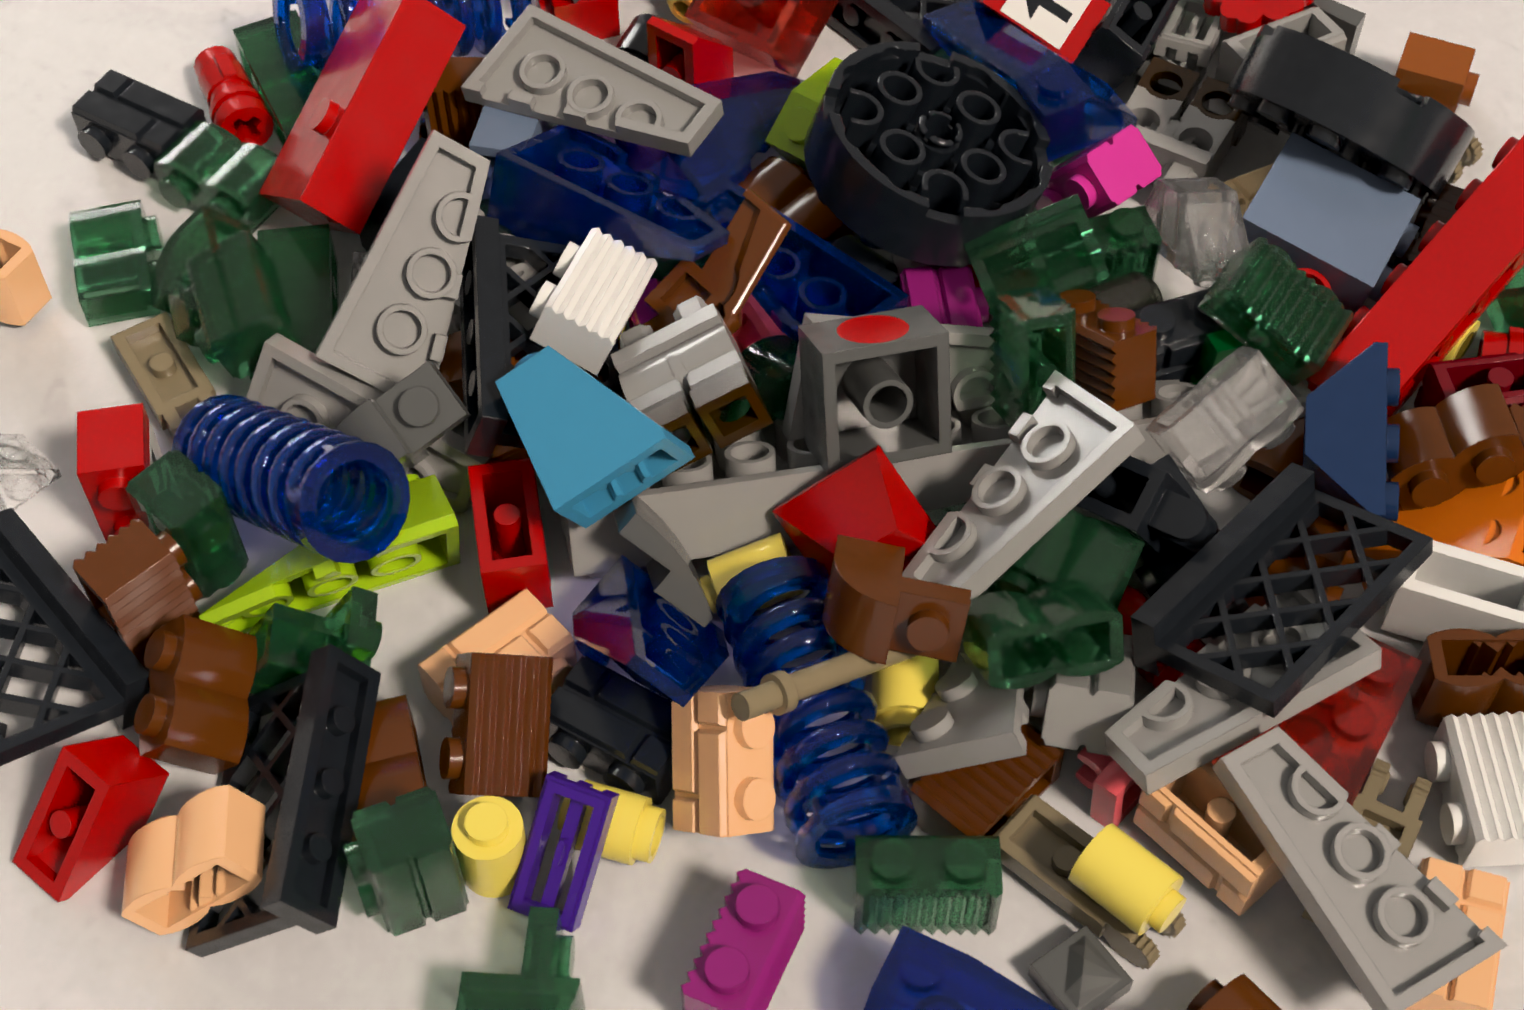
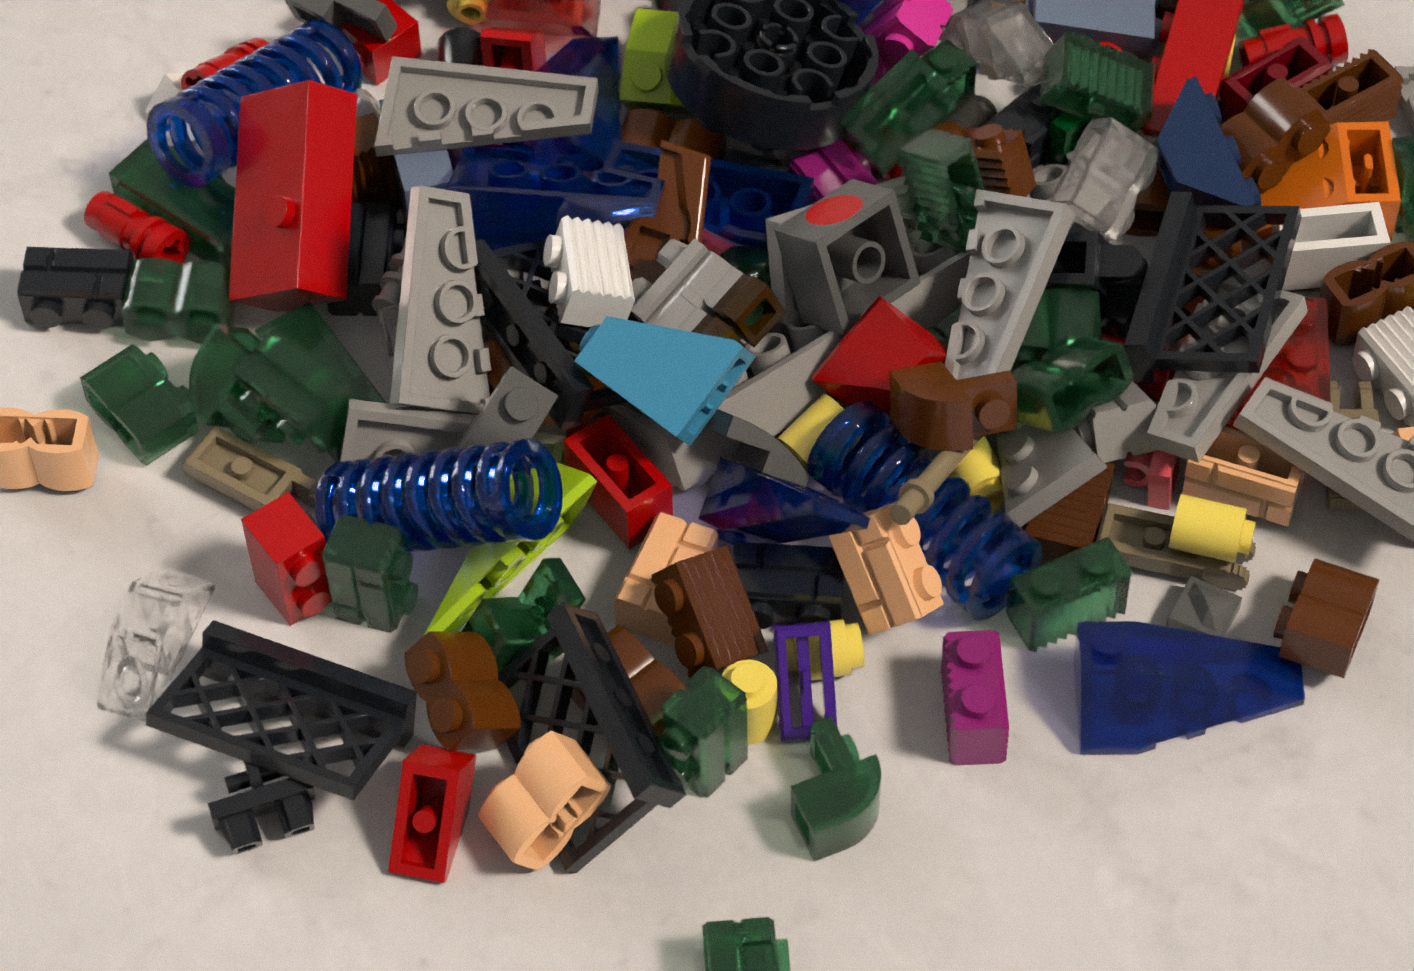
camera: 25 degrees left, 0 degrees up
(138, 583) = (368, 629): reddish brown brick -> none

